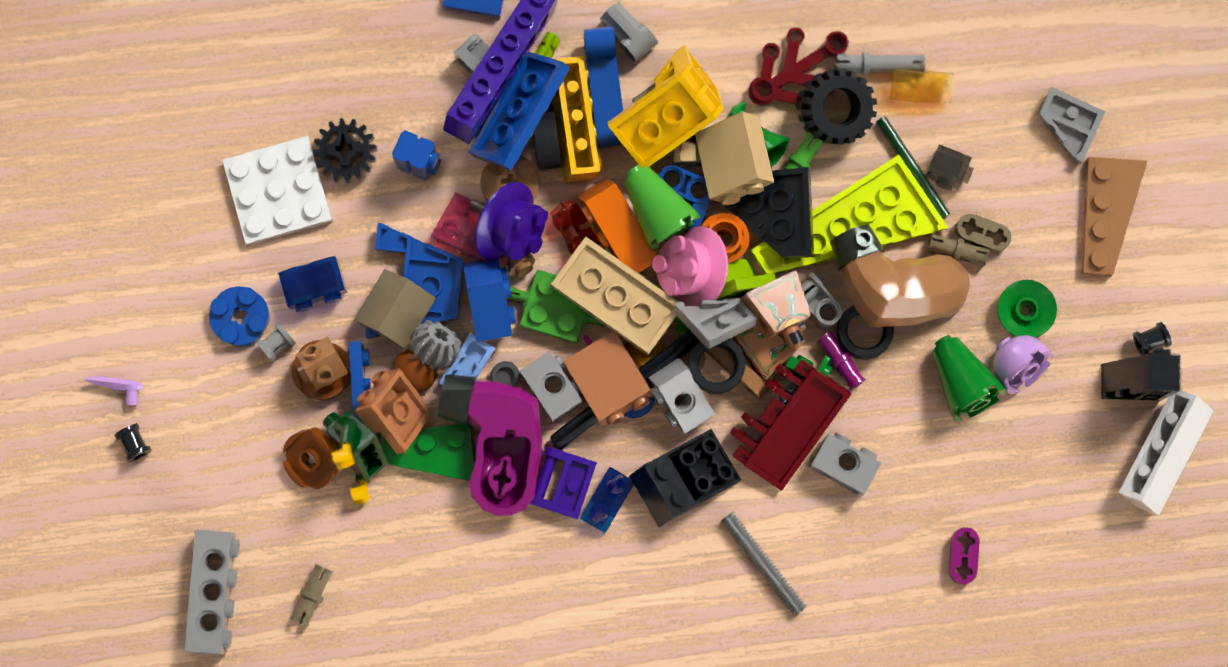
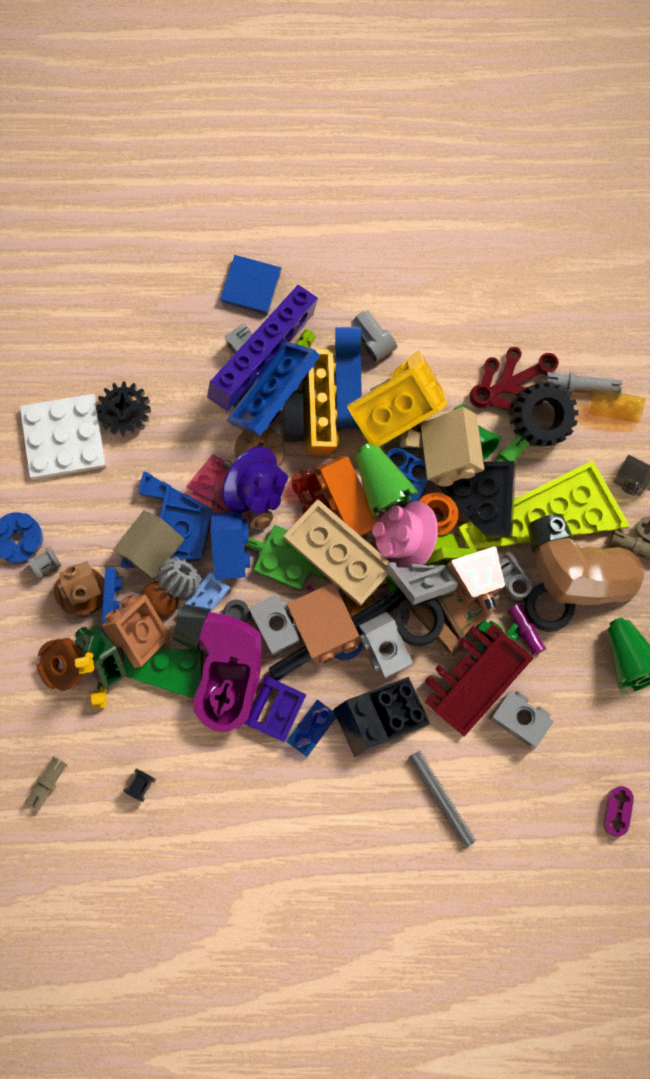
camera: 10 degrees right, 5 degrees down
(313, 283) = (82, 516): clear blue brick -> none
(416, 156) = (182, 418): blue brick -> none
(418, 586) = (139, 785): none -> black bush
(900, 149) = (593, 455): dark green bar -> none

